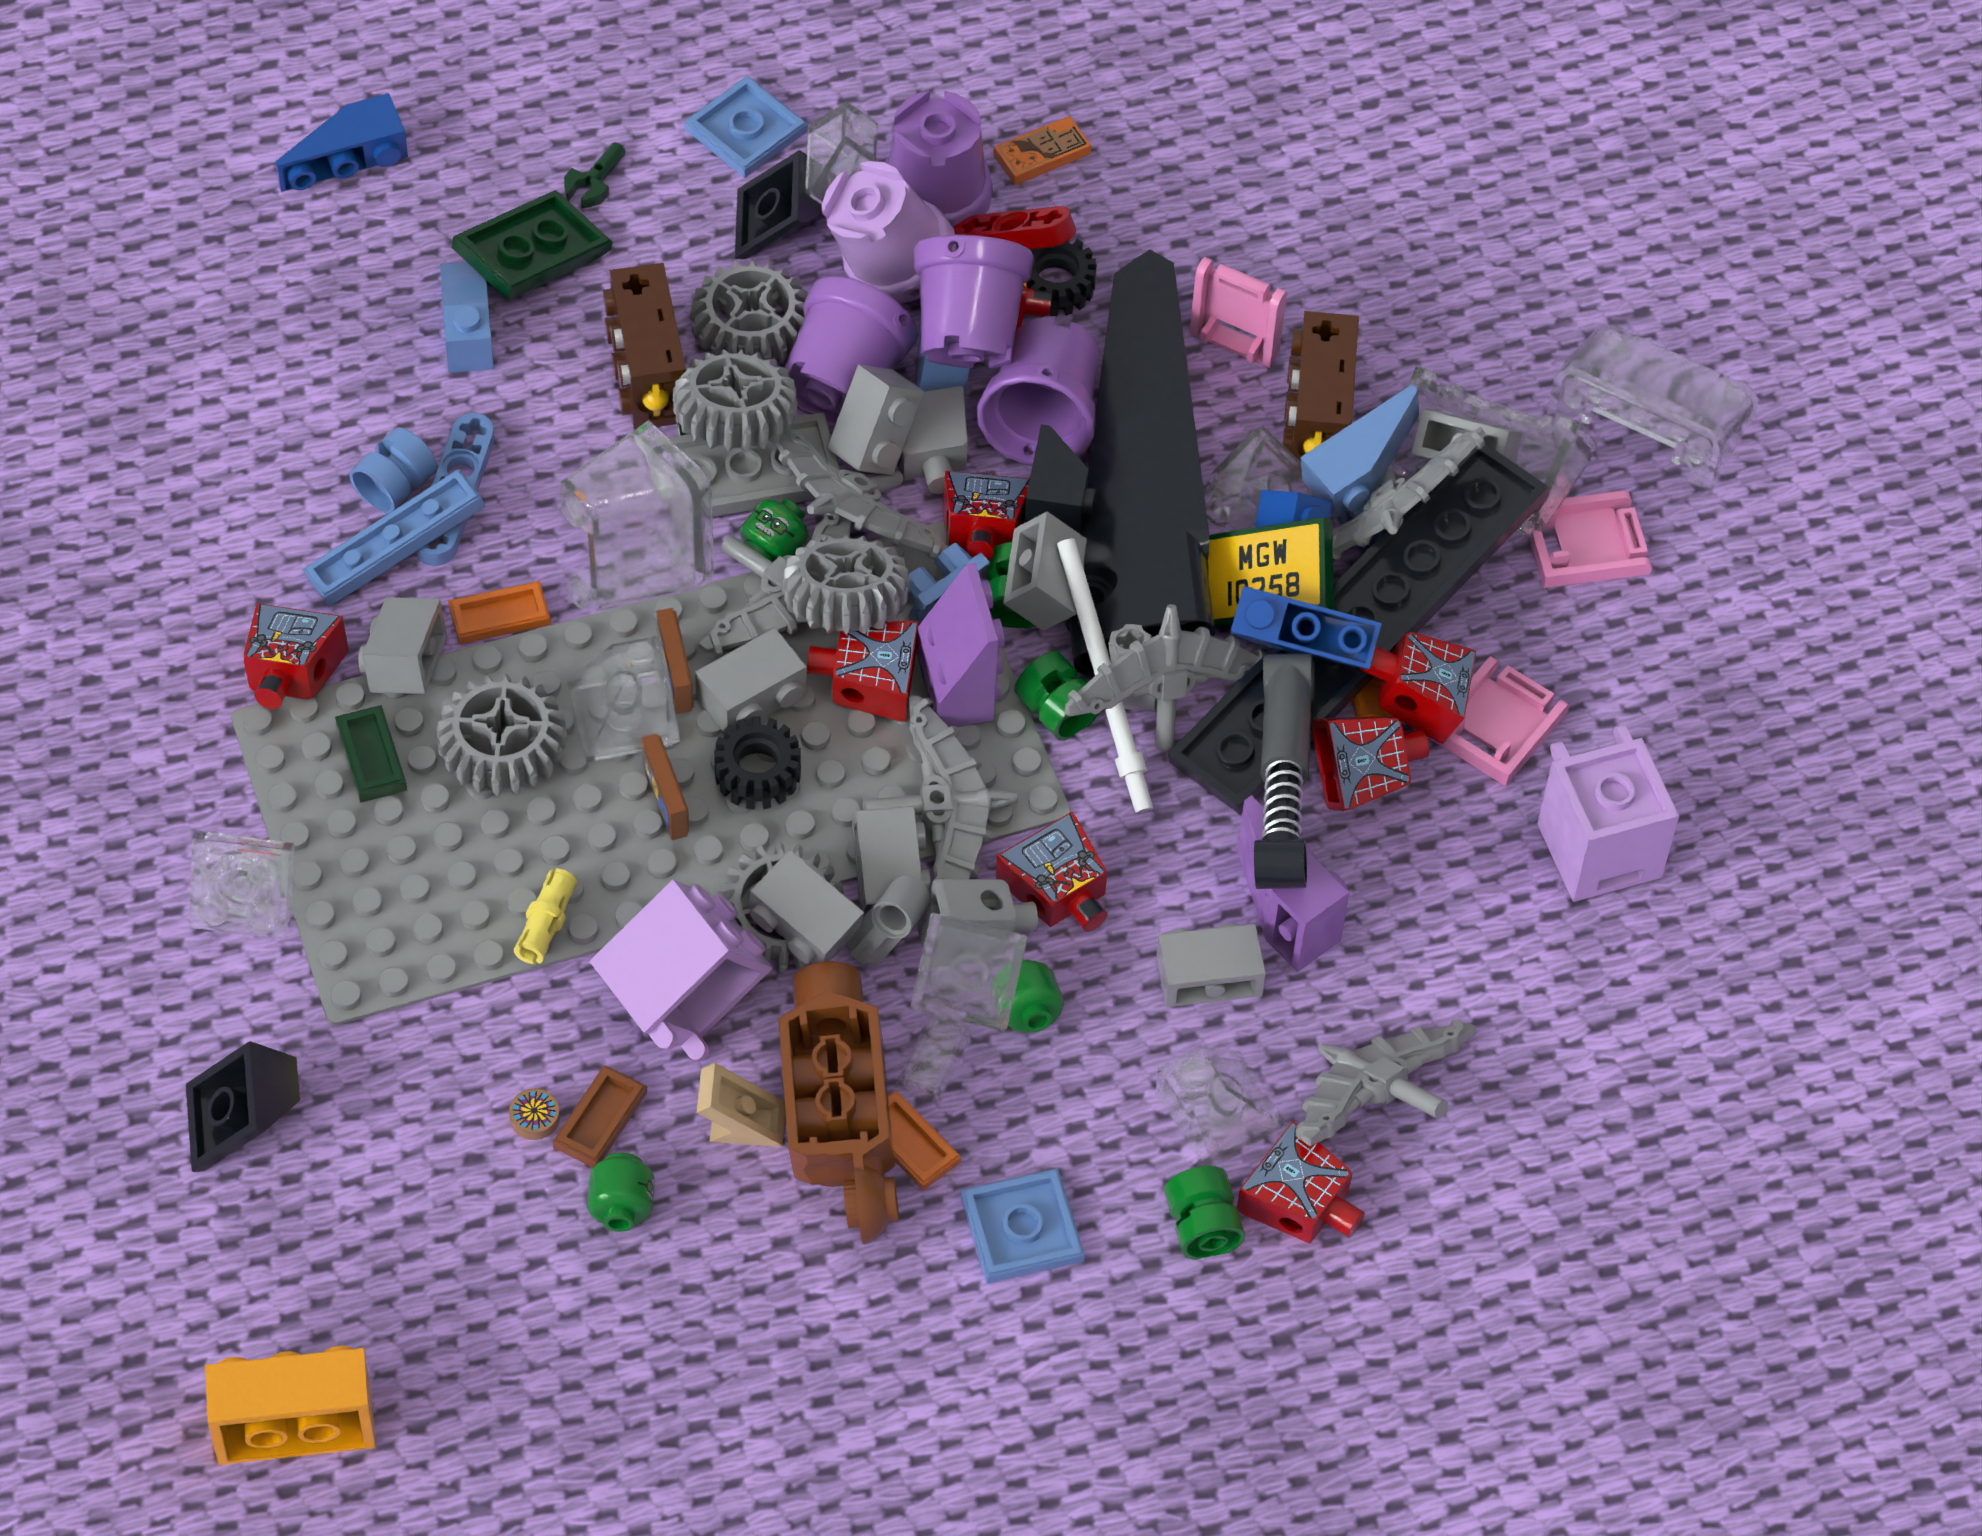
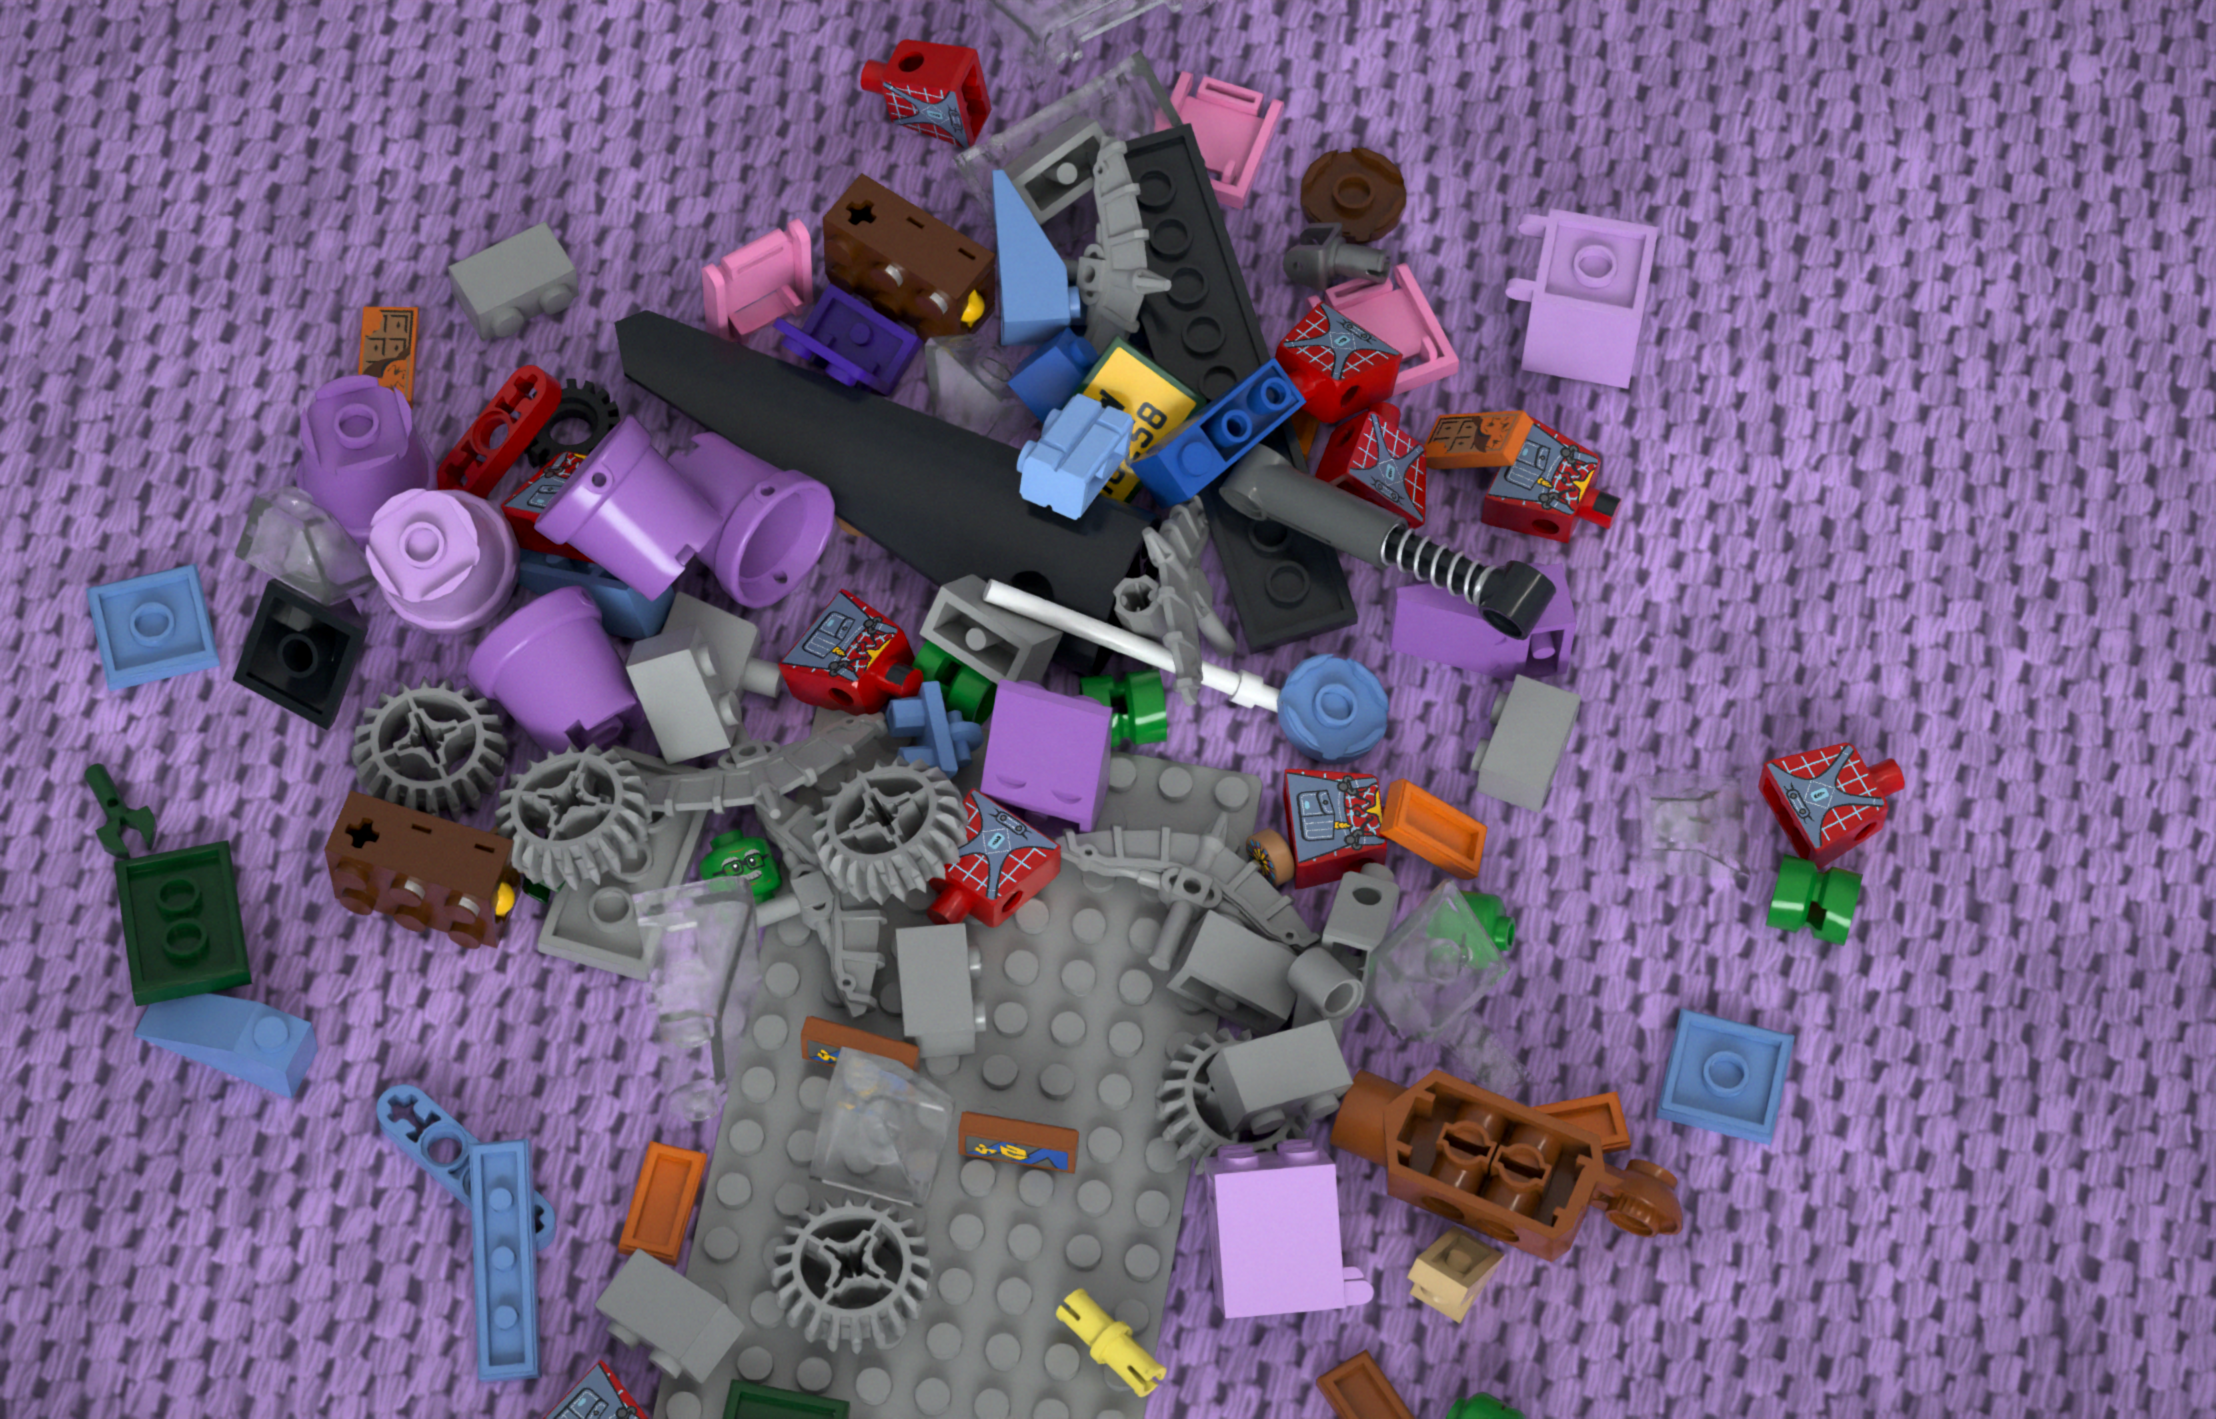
camera: 60 degrees left, 5 degrees up
(389, 472) = (412, 1217): medium blue wheel -> none
(752, 740) = (1039, 1006): black tyre -> none
(1006, 837) = (1273, 855): none -> medium nougat tile
(1058, 482) = (882, 567): black slope -> none
(1091, 932) = (1433, 829): none -> orange tile
(1148, 185) = (514, 282): none -> light grey brick
(1154, 829) = (1332, 709): none -> medium blue tile
(1213, 544) = (1074, 455): none -> light blue brick
(1234, 396) = (855, 339): none -> dark purple bracket
(1378, 1076) = (1740, 669): light grey bar -> none
(1439, 879) = (1549, 489): none -> torso
(1442, 812) = (1477, 439): none -> orange tile
(1486, 327) = (932, 90): none -> red torso
(1533, 654) = (1333, 258): none -> flat silver piece
(1603, 663) = (1362, 214): none -> reddish brown tile

